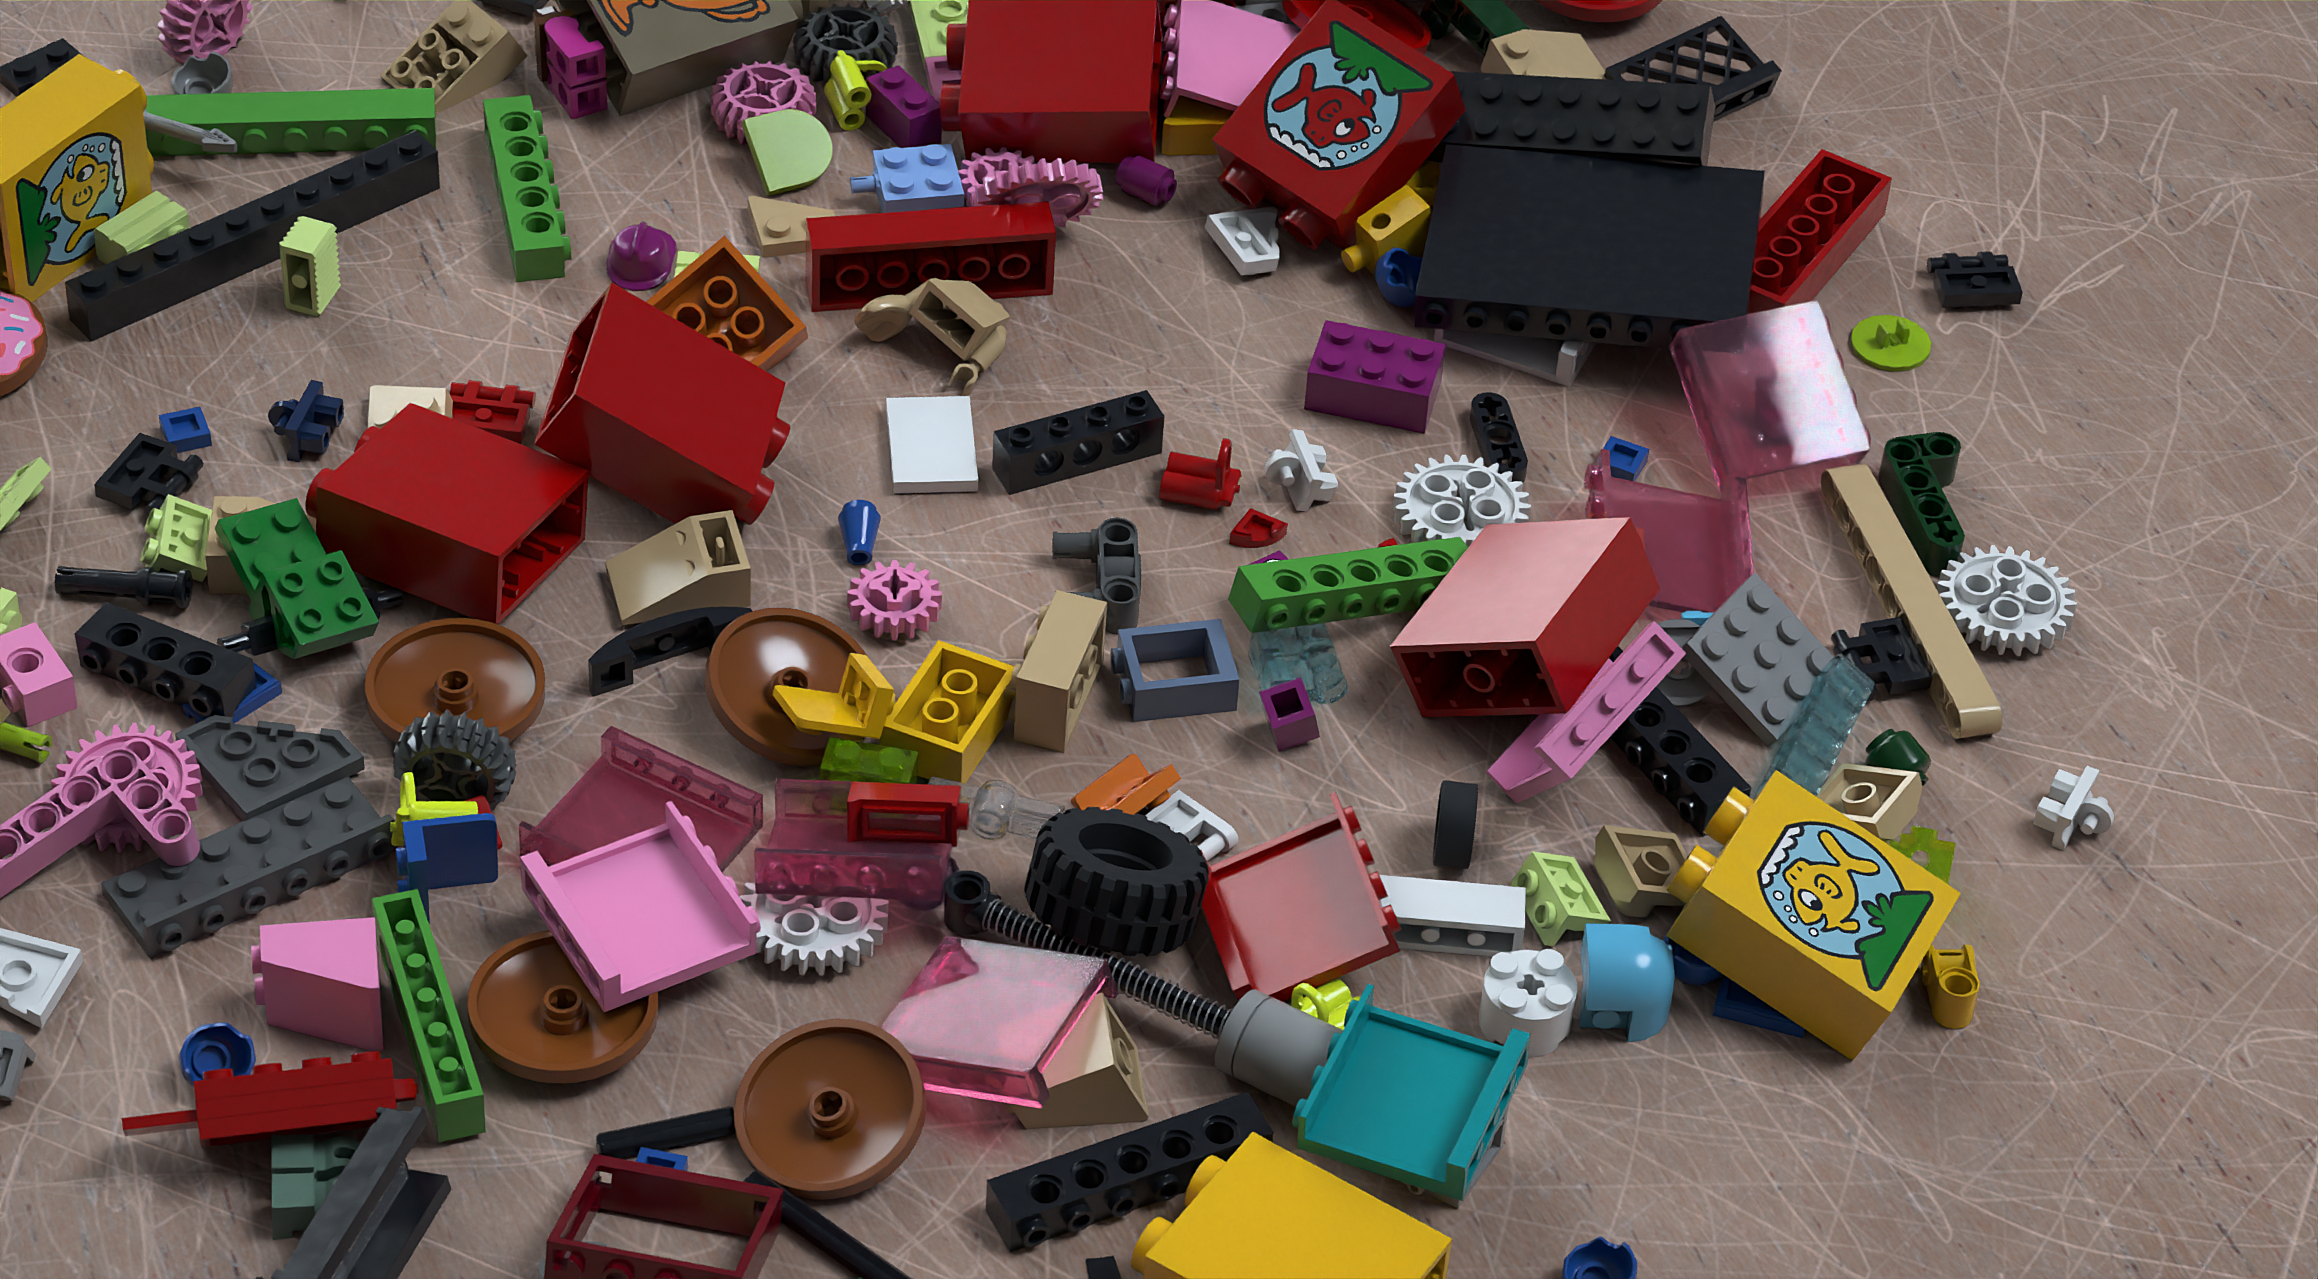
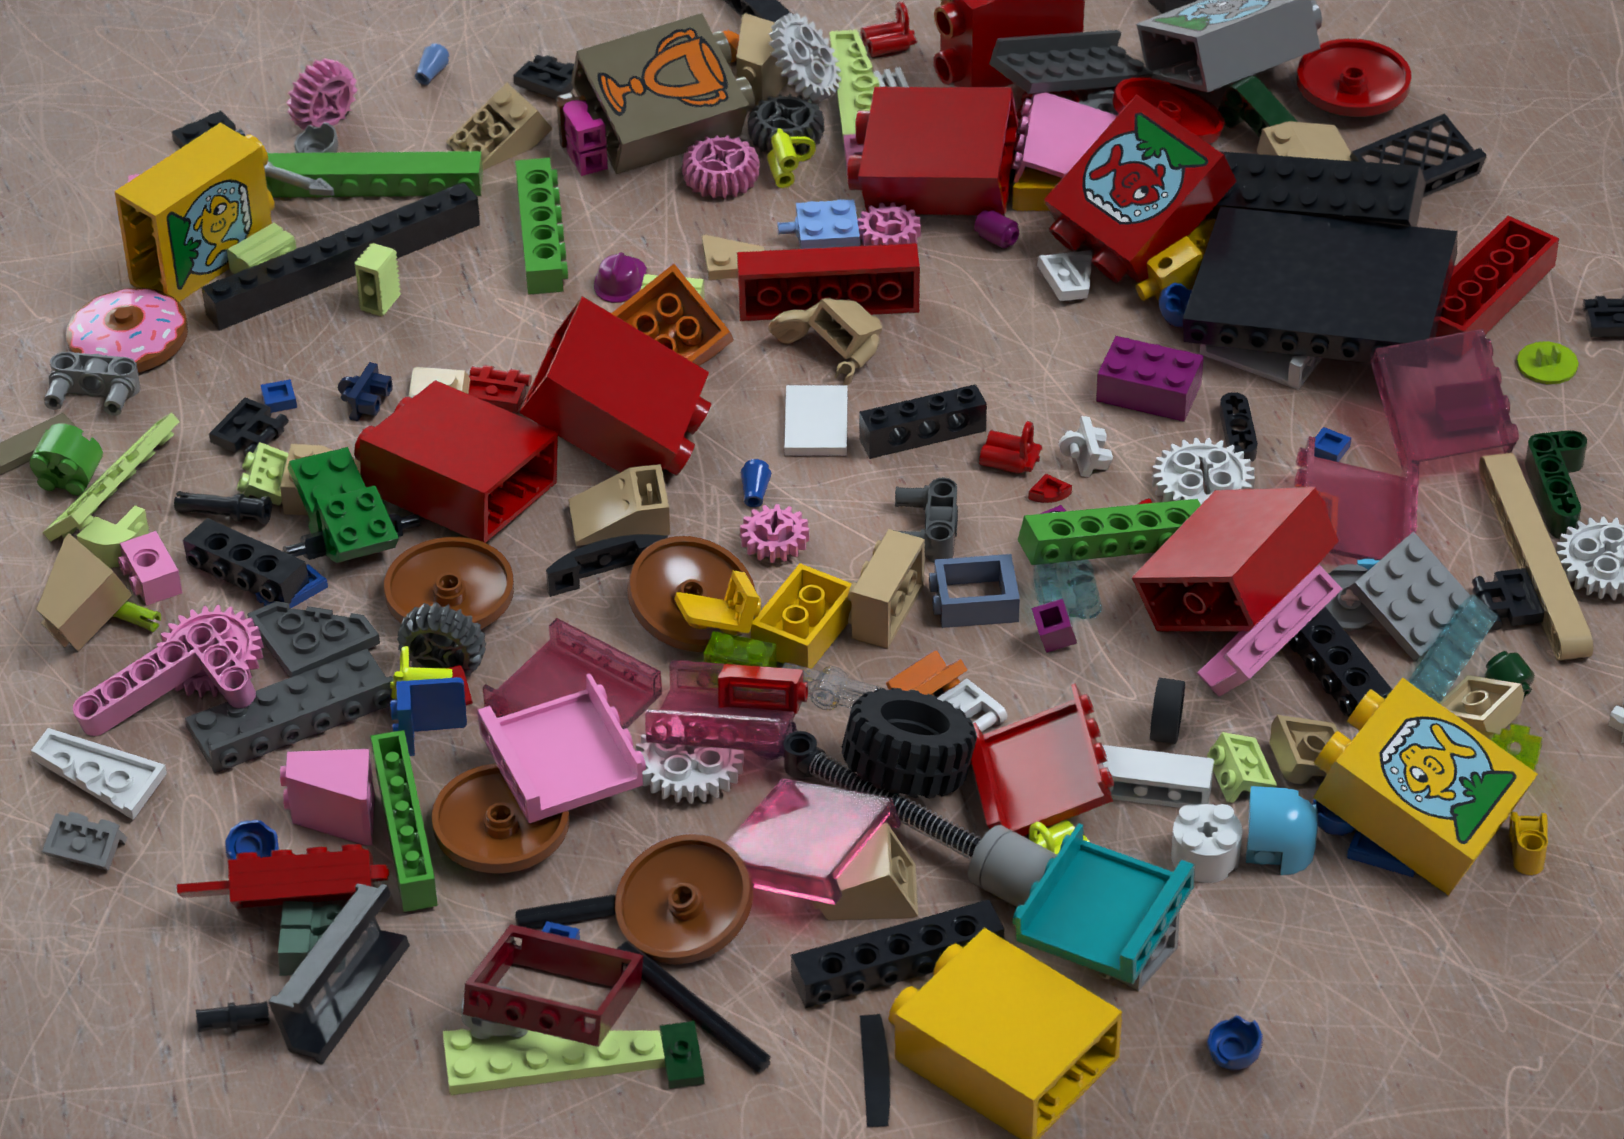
camera: 10 degrees right, 0 degrees up
(788, 149) = (734, 201): lime tile -> none
(903, 109) = (822, 172): magenta brick -> none
(1067, 187) = (932, 234): bright pink gear -> none

